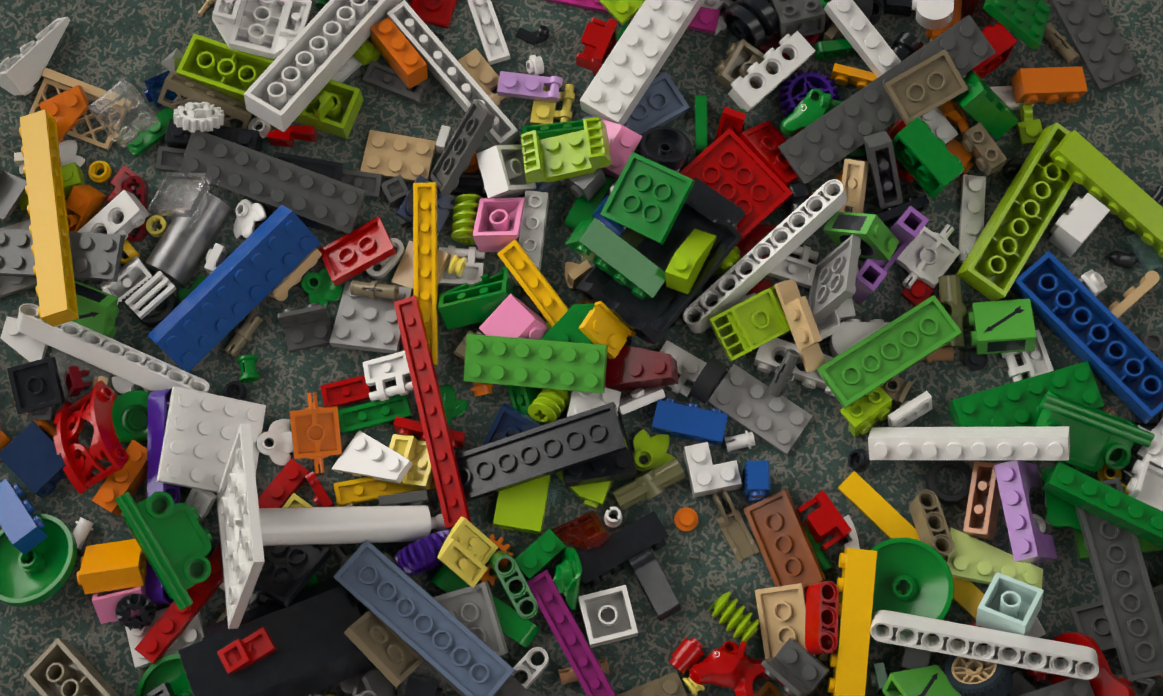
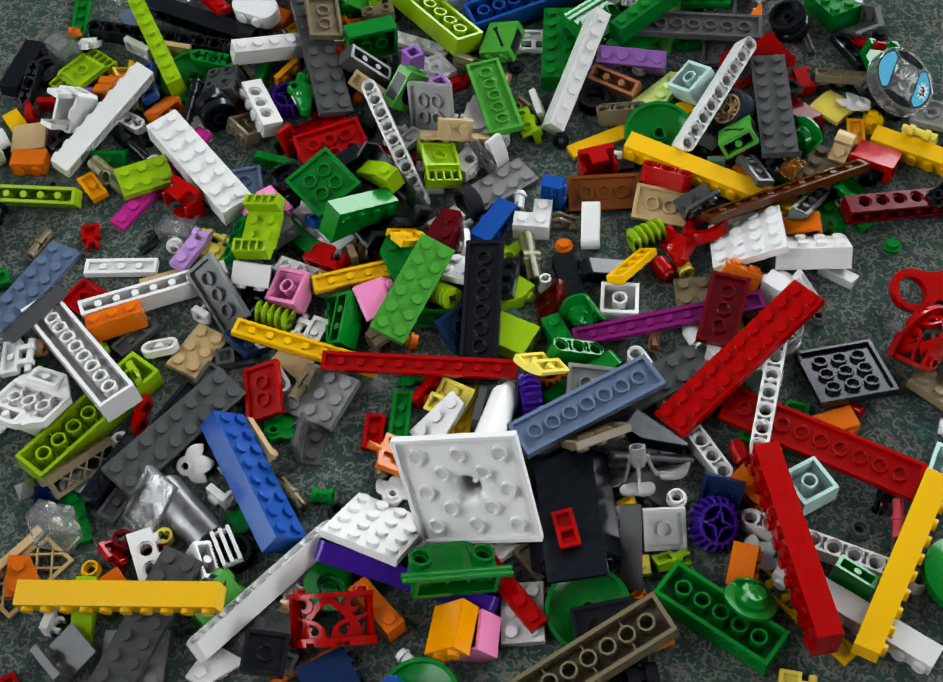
camera: 70 degrees left, 20 degrees down
(74, 381) = (274, 622): dark red tile -> none
(135, 602) = (496, 629): black gear -> none
(198, 117) = (93, 462): white gear -> none
(387, 369) = (369, 394): white plate -> none
(388, 116) = (160, 347): none -> white plate
(457, 265) = (309, 326): light yellow bush -> none
(550, 253) = (321, 258): none -> red panel
(557, 56) = (173, 226): none -> clear brick
(664, 615) = (631, 266): none -> yellow plate
(724, 543) = (590, 225): none -> white beam
(801, 386) = (497, 150): none -> white slope

